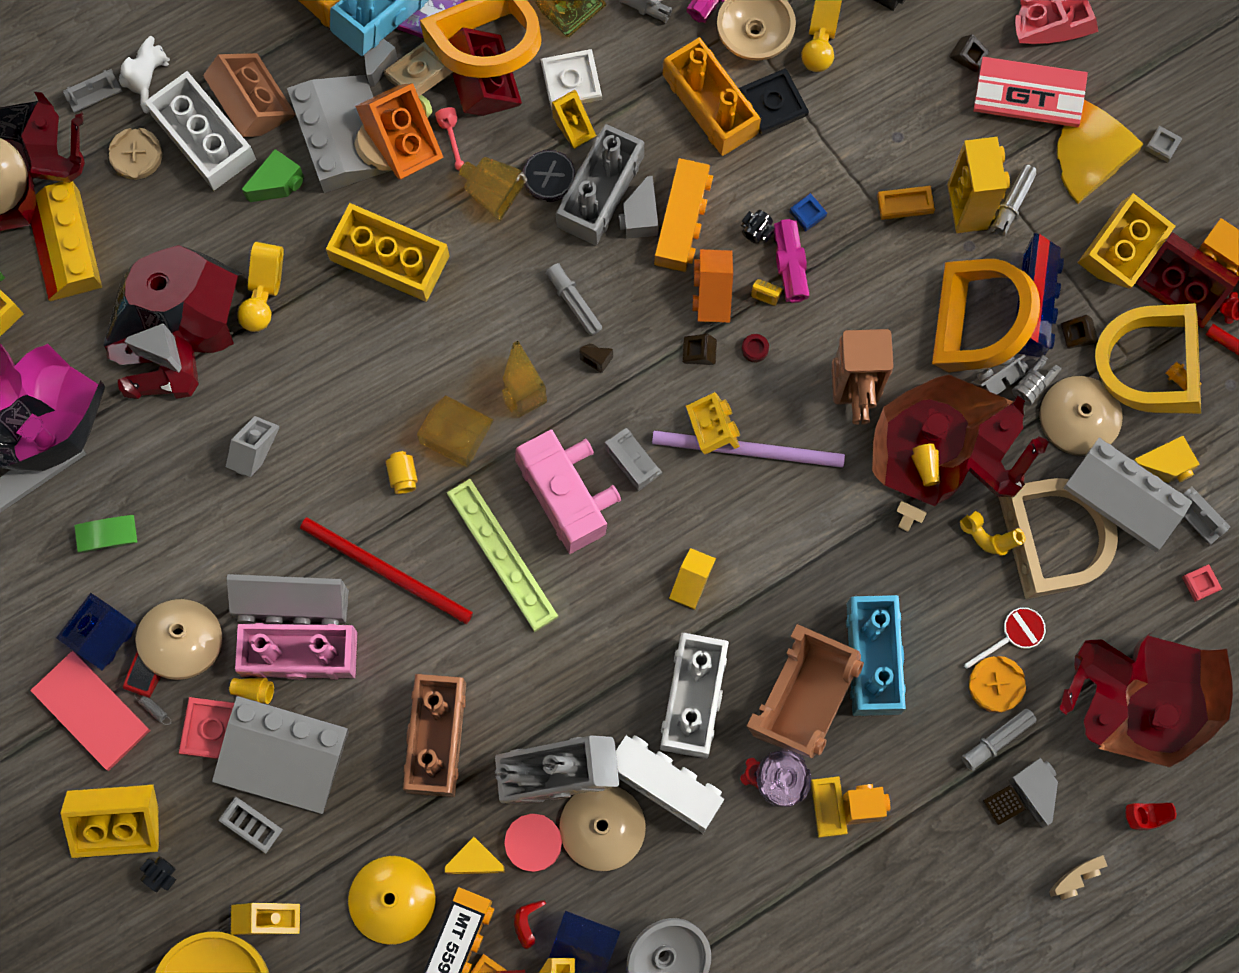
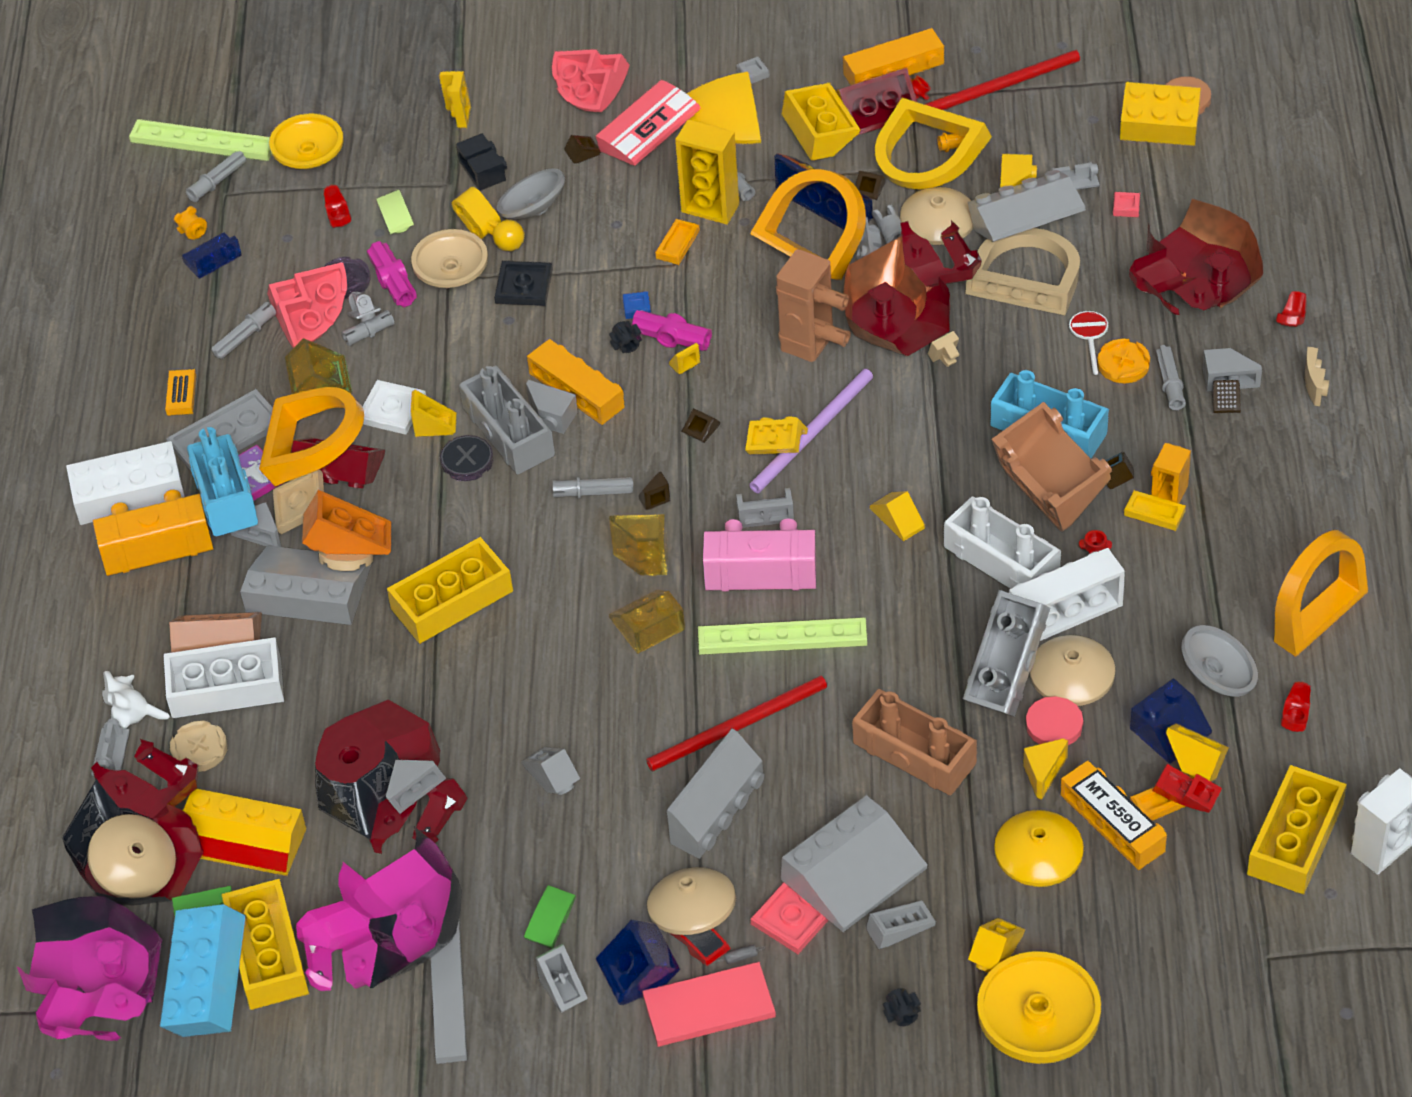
camera: 55 degrees left, 25 degrees down
(47, 580) = (560, 978): none -> light grey slope
(111, 821) = (827, 1024): yellow slope -> none
(253, 688) = (772, 869): yellow cone -> none
(263, 280) = (395, 684): yellow beam -> none
(274, 179) = (312, 645): bright green slope -> none
(296, 651) = (767, 810): bright pink piece -> none
(401, 472) = (657, 670): yellow brick -> none
(447, 120) = (361, 501): coral hinge -> none
(493, 184) = (446, 493): clear yellow torso -> none
(521, 923) = (1124, 756): red hair -> none
(711, 96) = (488, 313): light orange piece -> none
(715, 279) = (657, 378): orange brick -> none
(755, 348) = (727, 389): dark red tile -> none
(783, 778) = (1110, 524): clear purple tile -> none
(855, 748) = (1121, 470): none -> dark brown slope
(875, 44) = (531, 195): none -> light grey dish
(927, 463) = (910, 319): yellow cone -> none
(994, 544) = (1008, 306): yellow piece -> none

